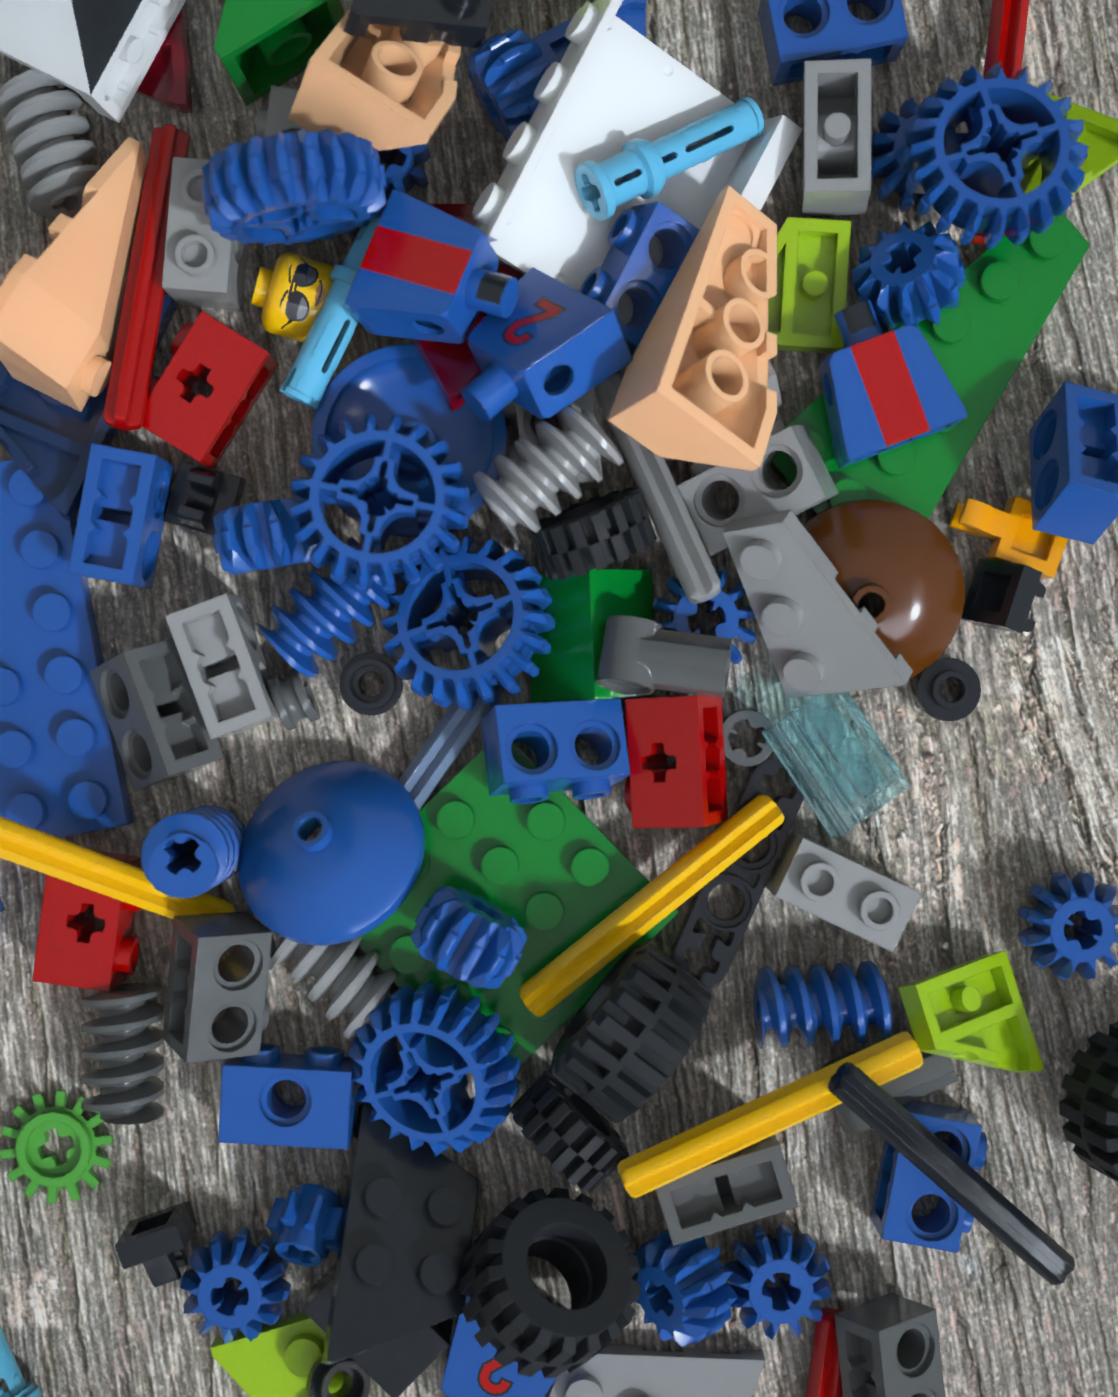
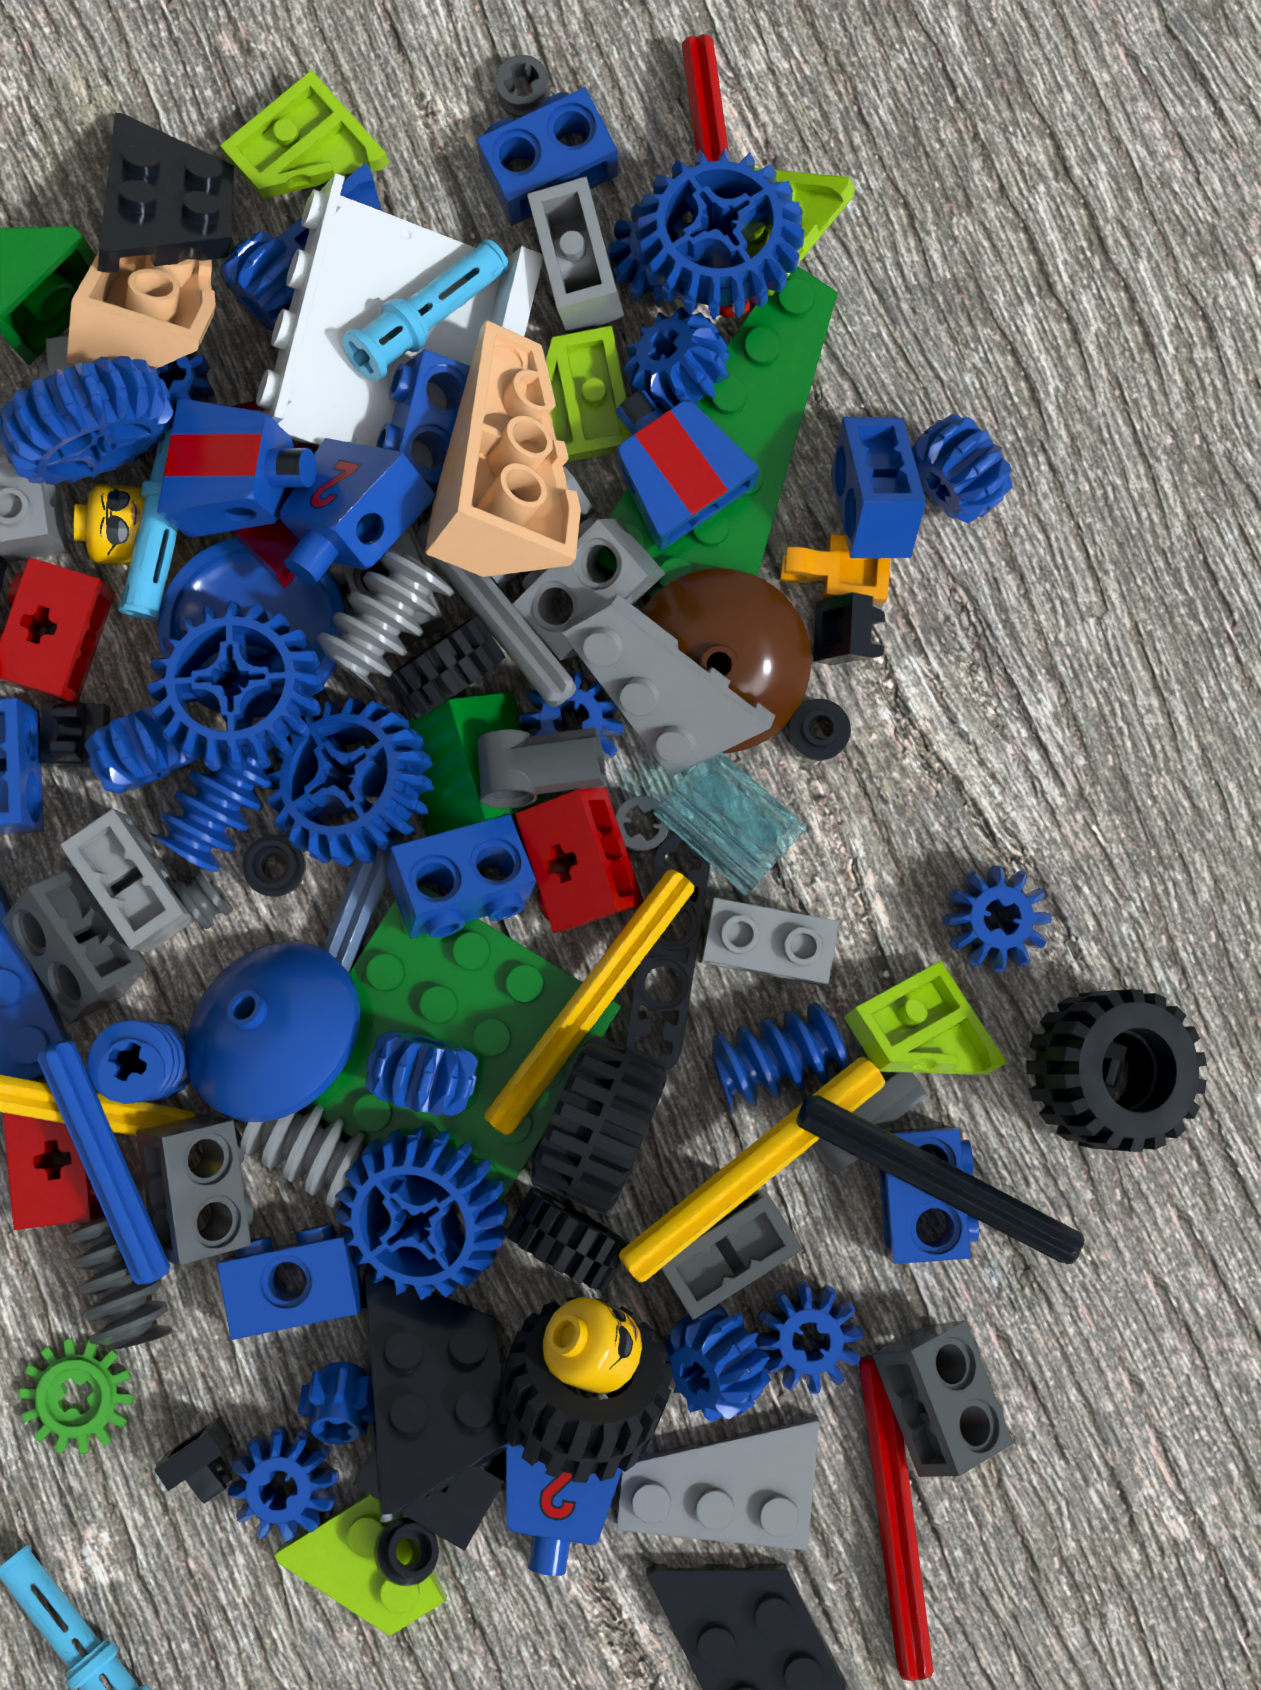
camera: 20 degrees left, 5 degrees down
(135, 943) = (103, 1161): none -> blue axle
(571, 1253) = (592, 1345): none -> yellow head

